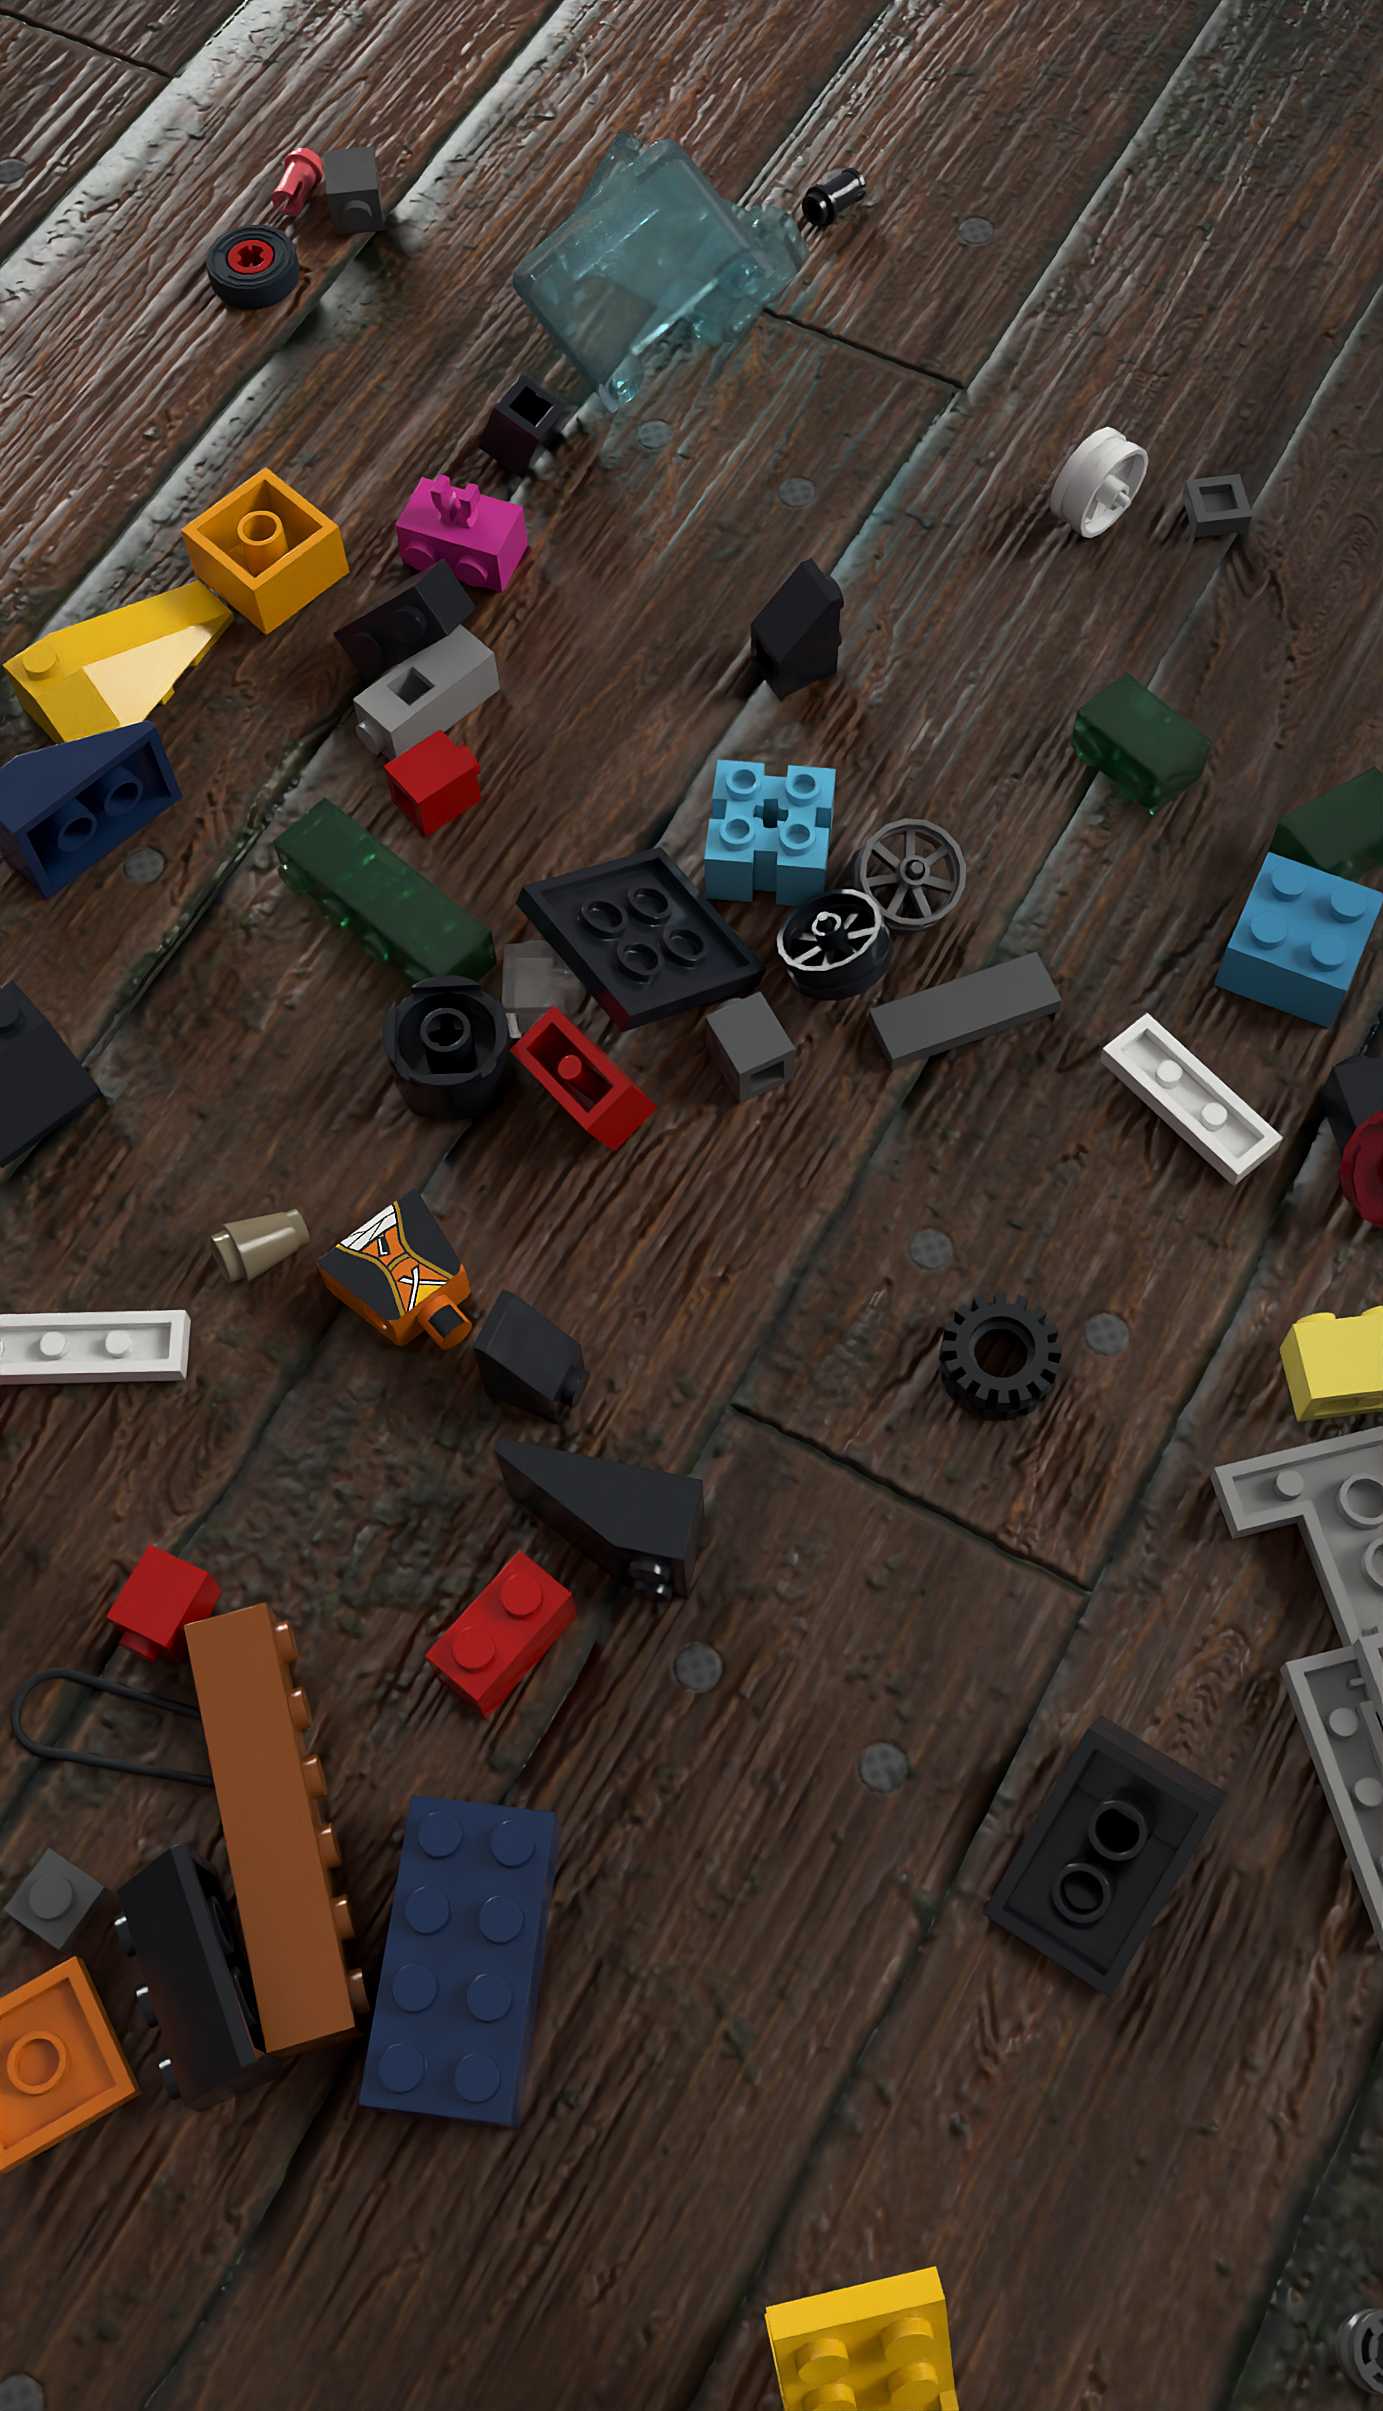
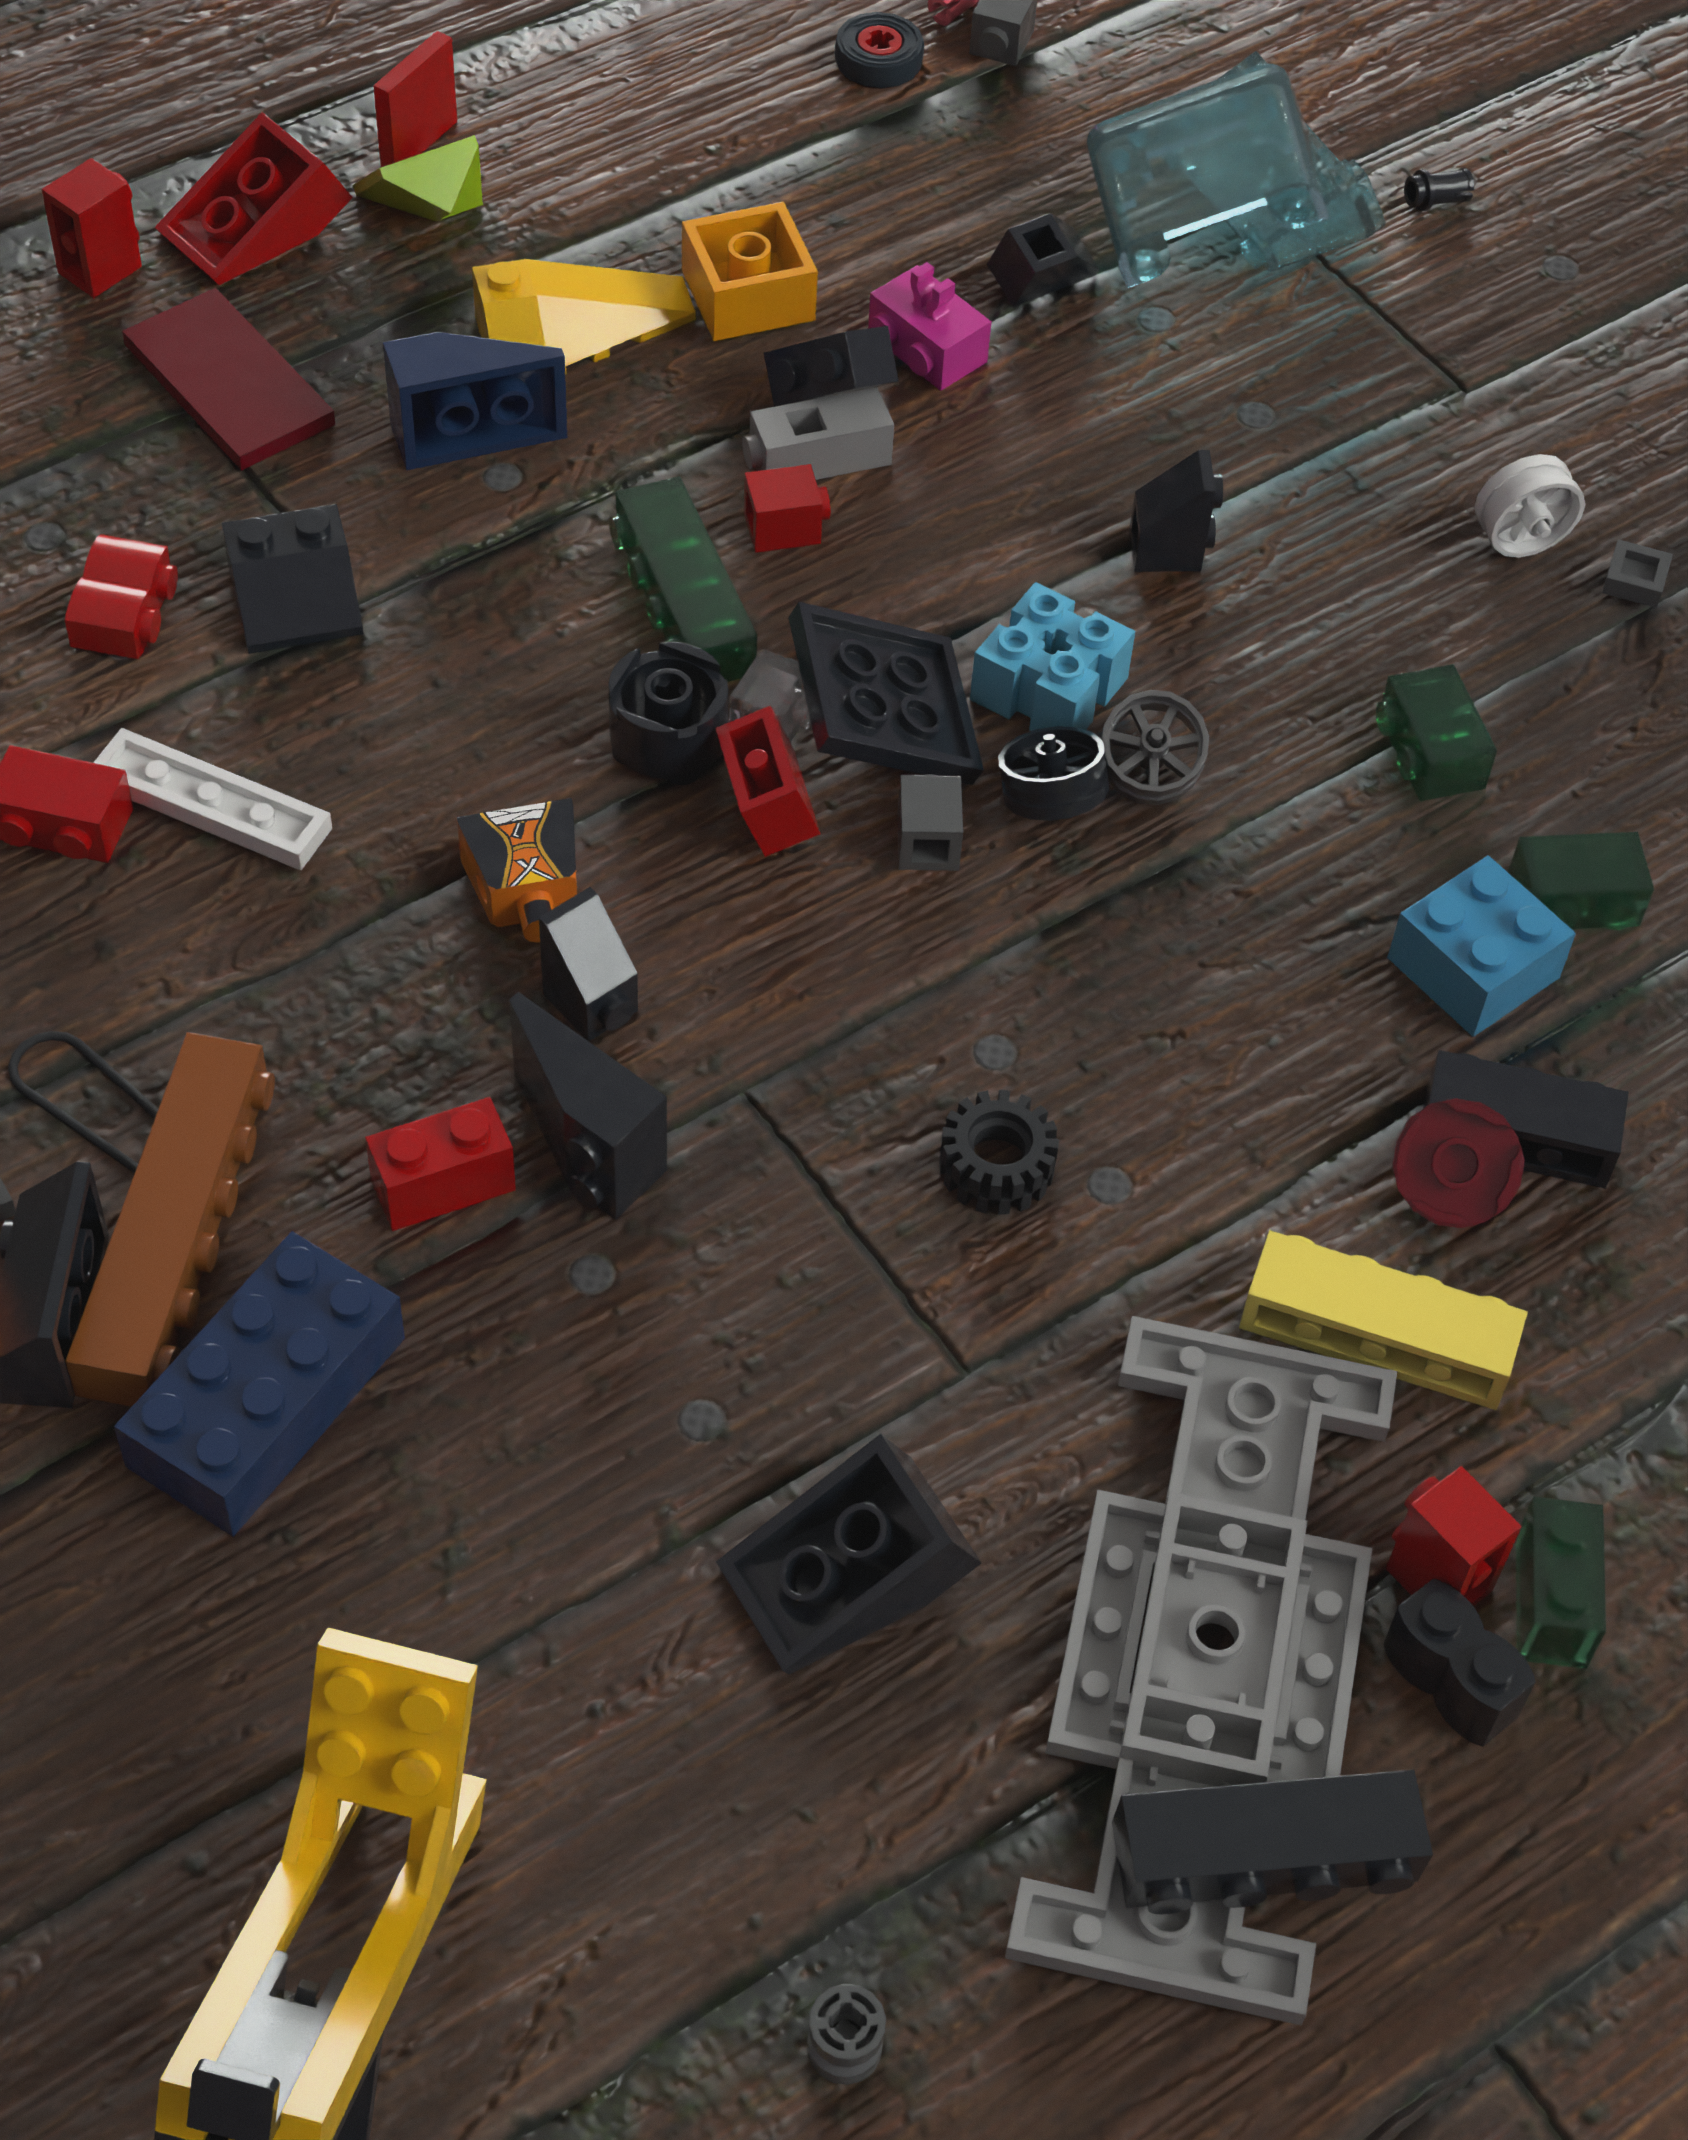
camera: 20 degrees right, 10 degrees down
(158, 1603) = (178, 1006): red brick -> none
(256, 1244) = (420, 793): dark tan cone -> none
(964, 1010) = (1142, 878): dark grey tile -> none
(1190, 1099) = (1300, 1031): white plate -> none

